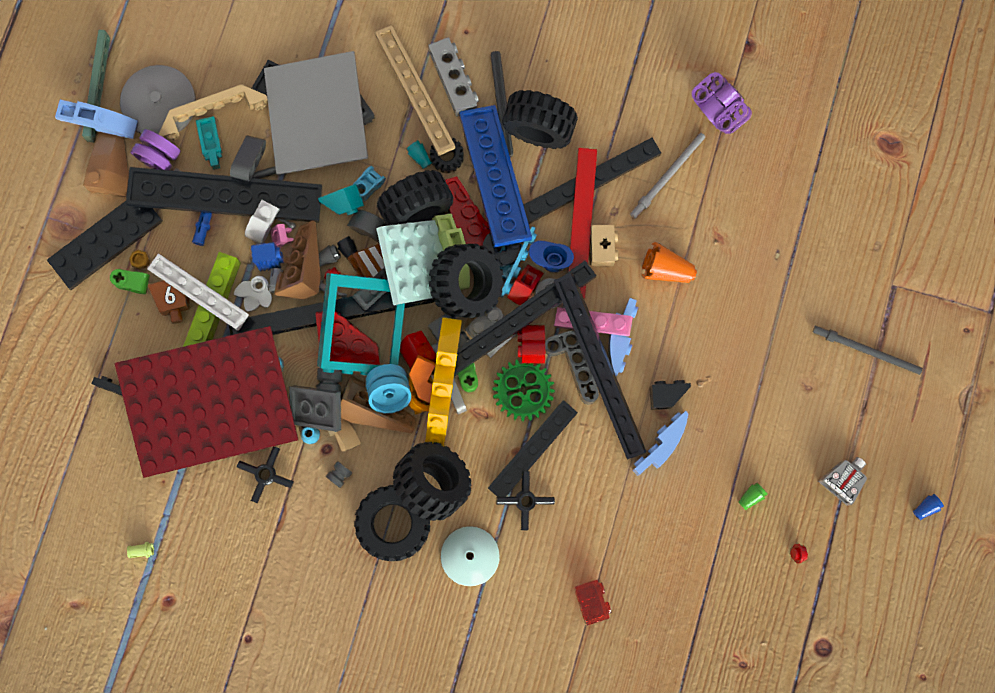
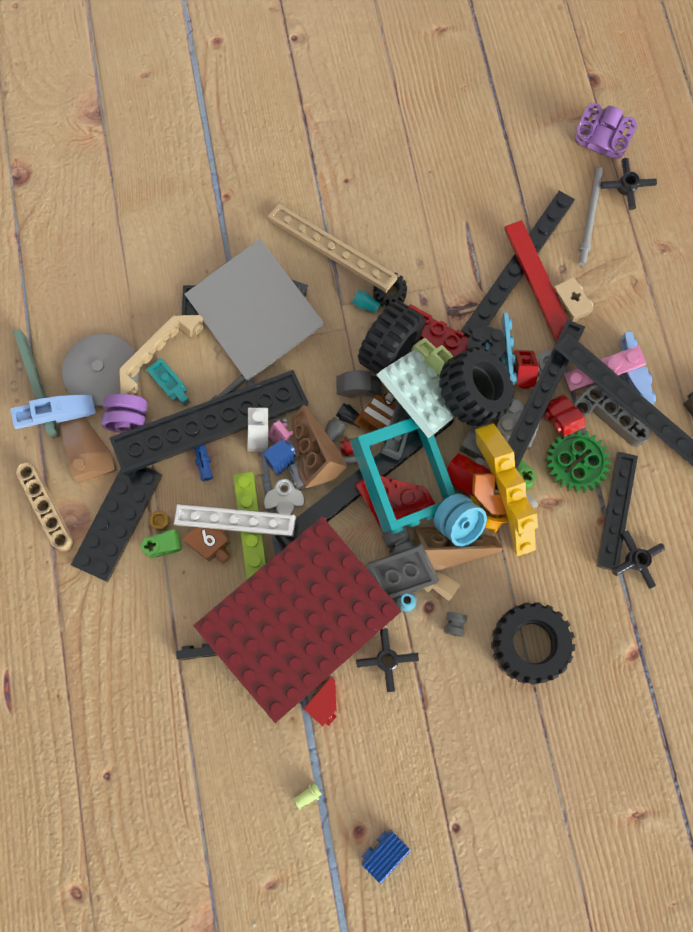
camera: 20 degrees left, 5 degrees down
(44, 192) = (51, 513): none -> tan beam
(176, 630) = (385, 855): none -> blue brick
(193, 483) = (324, 704): none -> red slope
(248, 158) = (213, 378): dark grey beam -> none
(343, 200) = (322, 373): teal slope -> none
(370, 182) = (334, 347): medium azure piece -> none
(419, 493) = (551, 583): black tyre -> none
(445, 49) = (360, 230): light grey brick -> none
(470, 571) = (603, 641): light aqua dish -> none
(495, 176) = (446, 286): blue plate -> none
(500, 94) = (413, 225): dark grey axle -> none
(539, 119) = (460, 216): black tyre -> none
(551, 255) = (535, 330): blue piece -> none
(667, 266) = (635, 290): orange cone -> none
(722, 156) = (627, 189): none -> black bar

